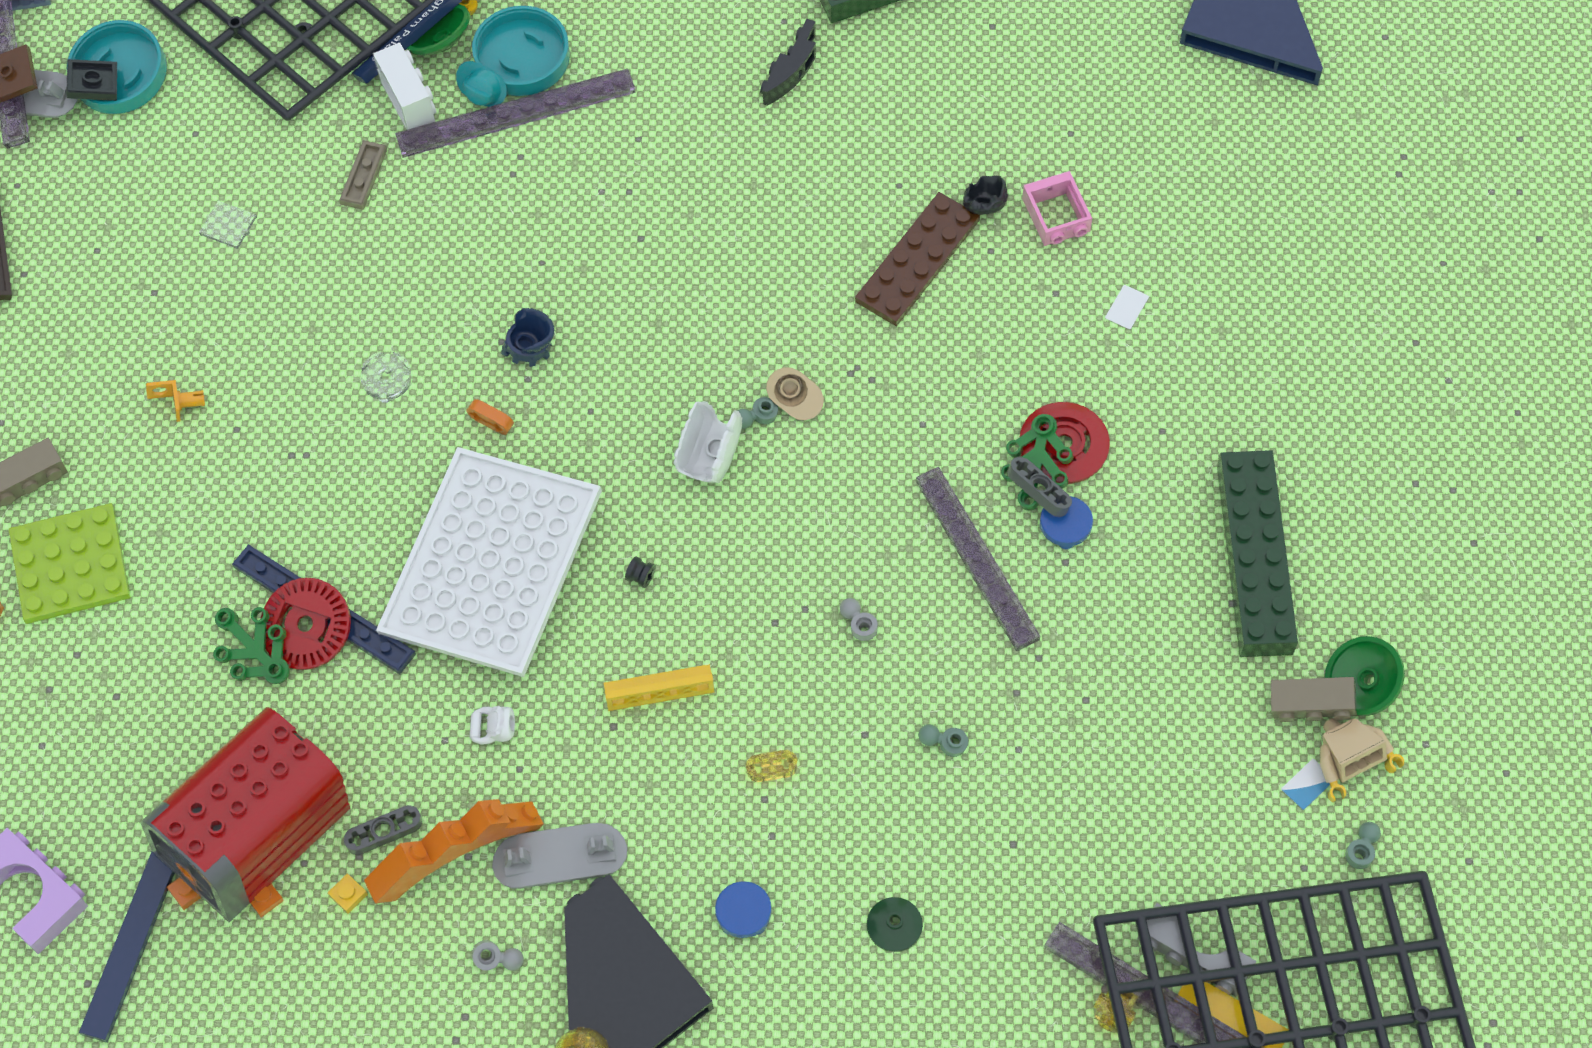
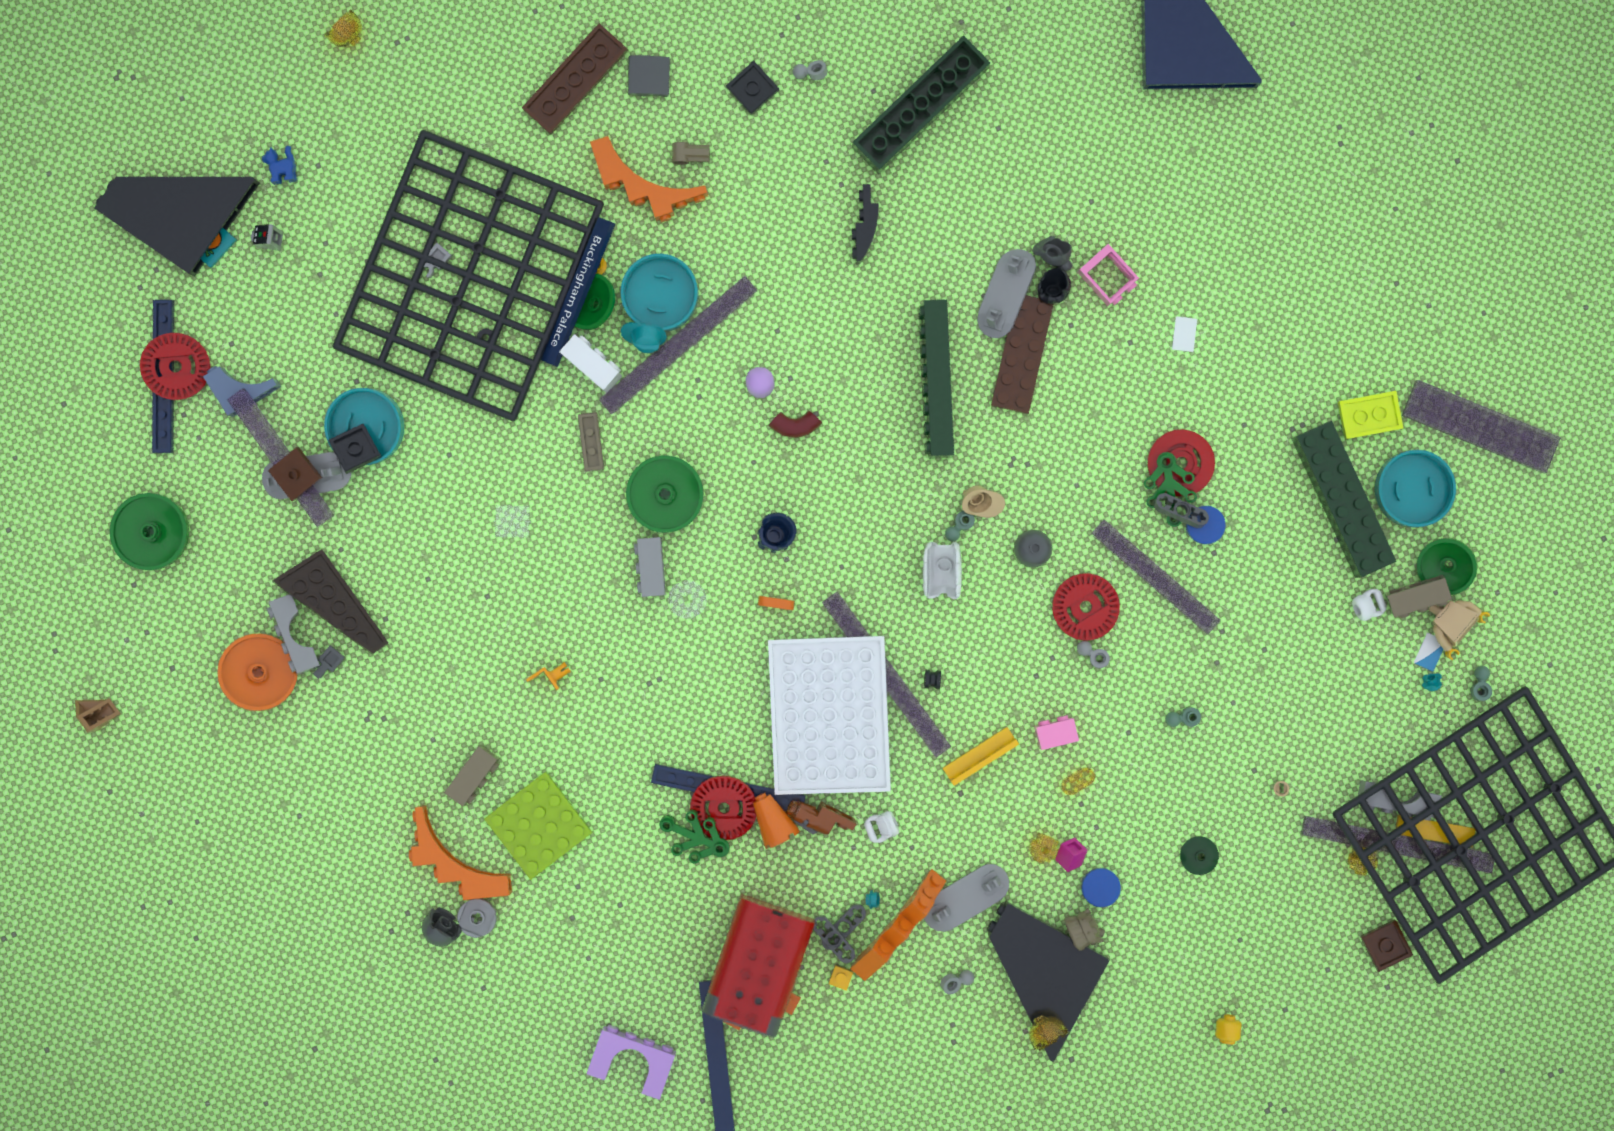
camera: 20 degrees left, 25 degrees up
(357, 659) = (773, 821): none -> orange cone
(361, 324) = (650, 567): none -> light grey brick
(362, 822) = (847, 946): none -> dark grey beam
(414, 680) = (819, 819): none -> dark orange plate
(418, 250) = (664, 493): none -> green dish
(437, 809) = (873, 899): none -> teal plate
(590, 180) = (760, 382): none -> lavender hair
(590, 563) = (895, 685): none -> clear purple plate
(609, 238) = (795, 427): none -> dark red cylinder
(688, 826) = (1043, 841): none -> clear yellow brick
(695, 948) = (1084, 930): none -> dark tan hair
(722, 852) = (1071, 854): none -> dark pink panel
(769, 693) = (1056, 733): none -> bright pink brick
(799, 242) = (937, 378): none -> dark green brick
(835, 471) = (1033, 548): none -> dark grey cylinder
(876, 539) = (1095, 622): none -> red piece
(925, 187) = (1006, 293): none -> light grey piece
(1004, 164) = (1054, 252): none -> dark grey hair
(1034, 874) = (1277, 788): none -> tan hinge
(1238, 692) = (1364, 606): none -> white piece
(1296, 816) = (1432, 681): none -> teal plate
(1328, 471) = (1370, 415): none -> neon yellow plate
(1355, 573) = (1415, 488): none -> teal brick
(1470, 535) = (1481, 426): none -> clear purple plate

